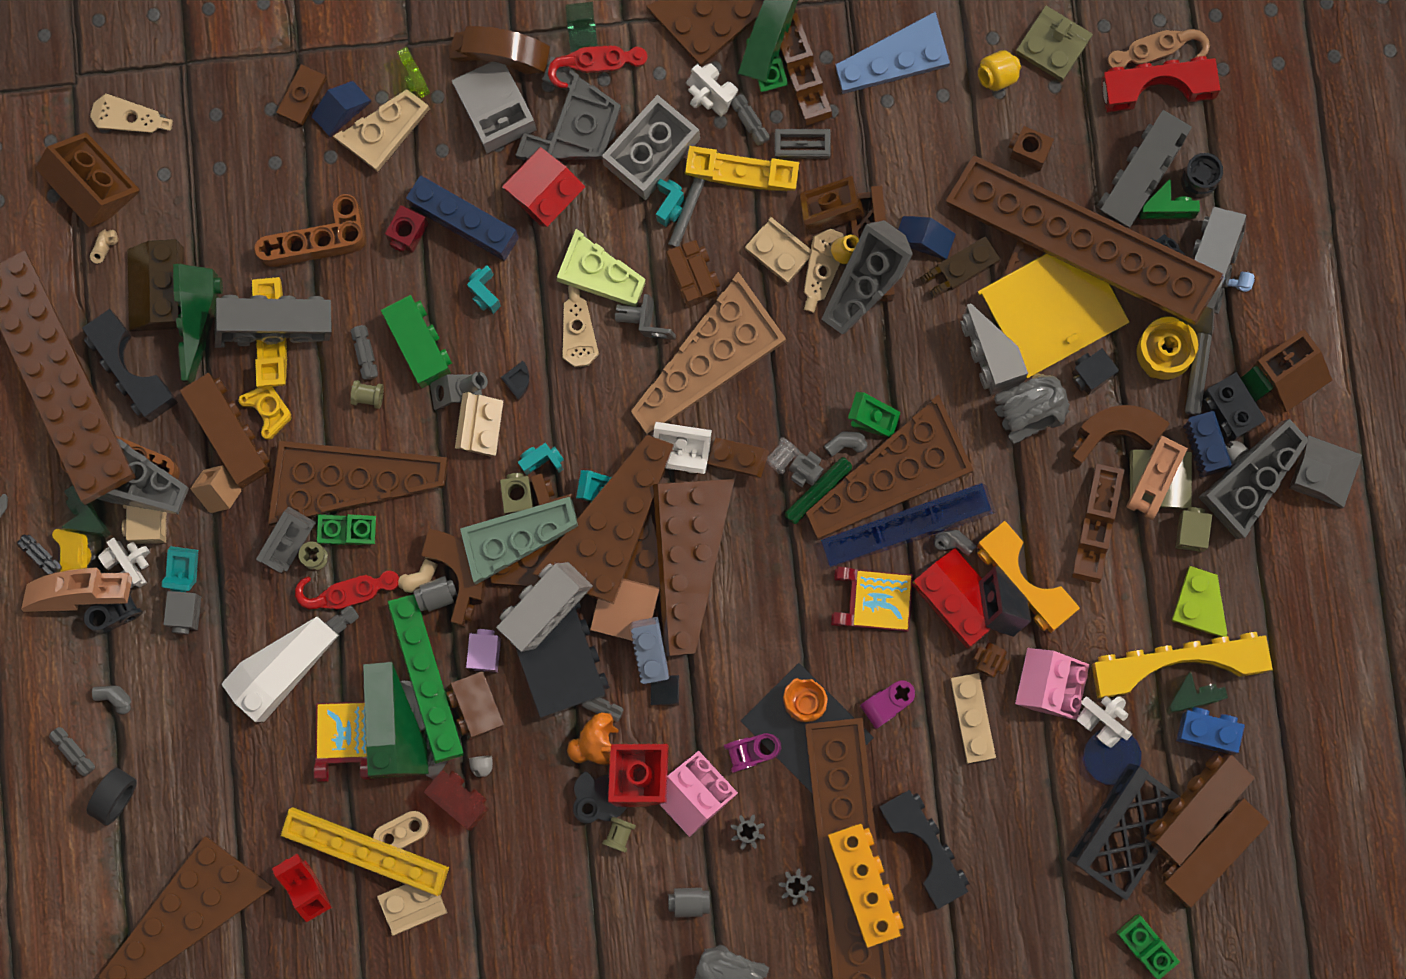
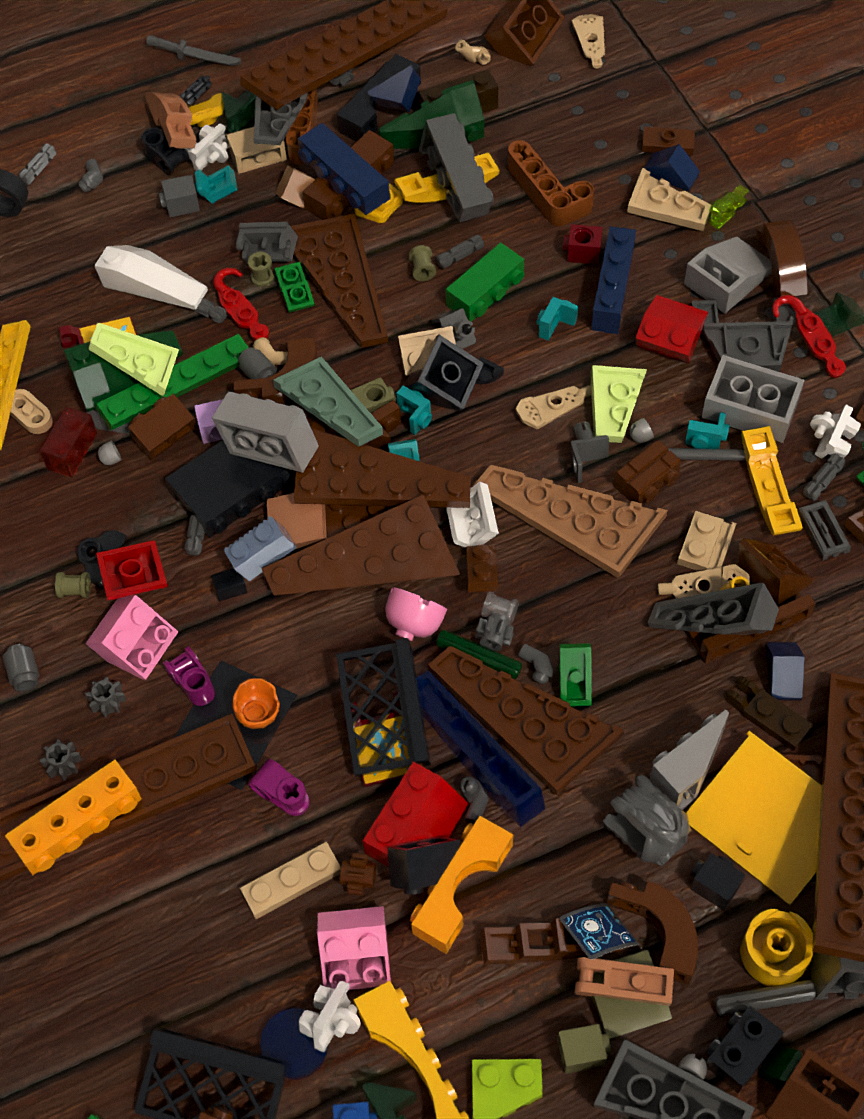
camera: 65 degrees right, 20 degrees down
(143, 344) = (397, 91): none -> dark blue slope
(231, 434) = (343, 169): none -> dark blue brick
(399, 706) = (135, 355): none -> yellowish green wing
(516, 419) = (445, 374): none -> black slope
(593, 741) = (165, 530): orange piece -> none
(642, 261) = (641, 431): none -> light grey hinge
(764, 534) = (412, 614): none -> bright pink cylinder
(859, 566) = (410, 705): none -> black fence
(906, 816) = (105, 902): black arch -> none
(1107, 482) = (597, 930): none -> sticker
(1207, 444) = (688, 1030): dark blue brick -> none

